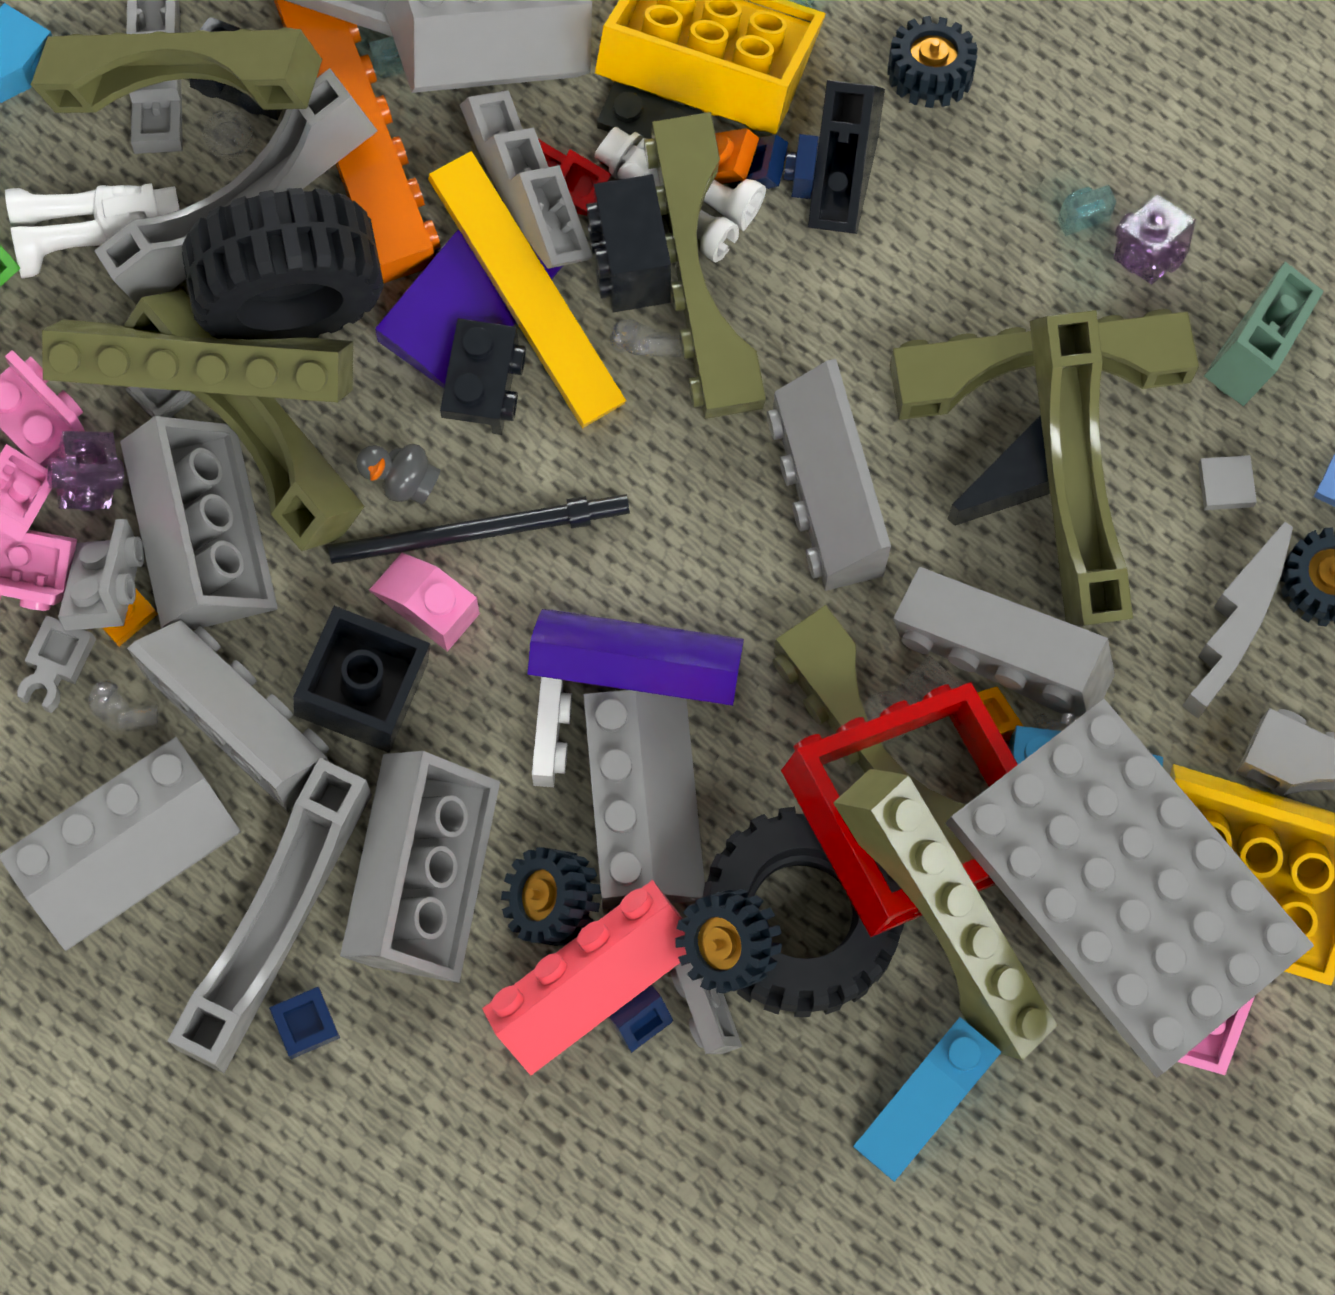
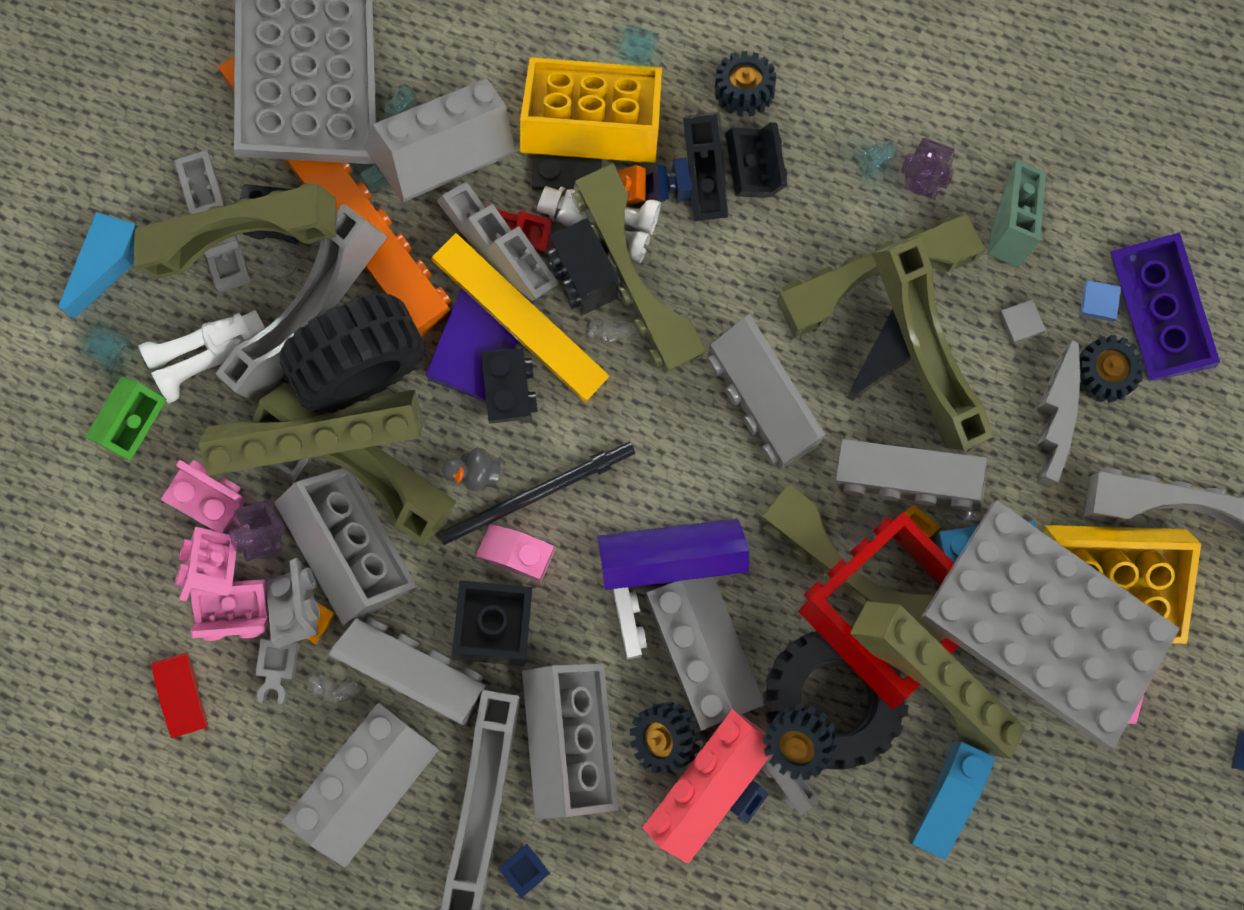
camera: 20 degrees left, 5 degrees up
(916, 168) = (756, 161): none -> black bracket

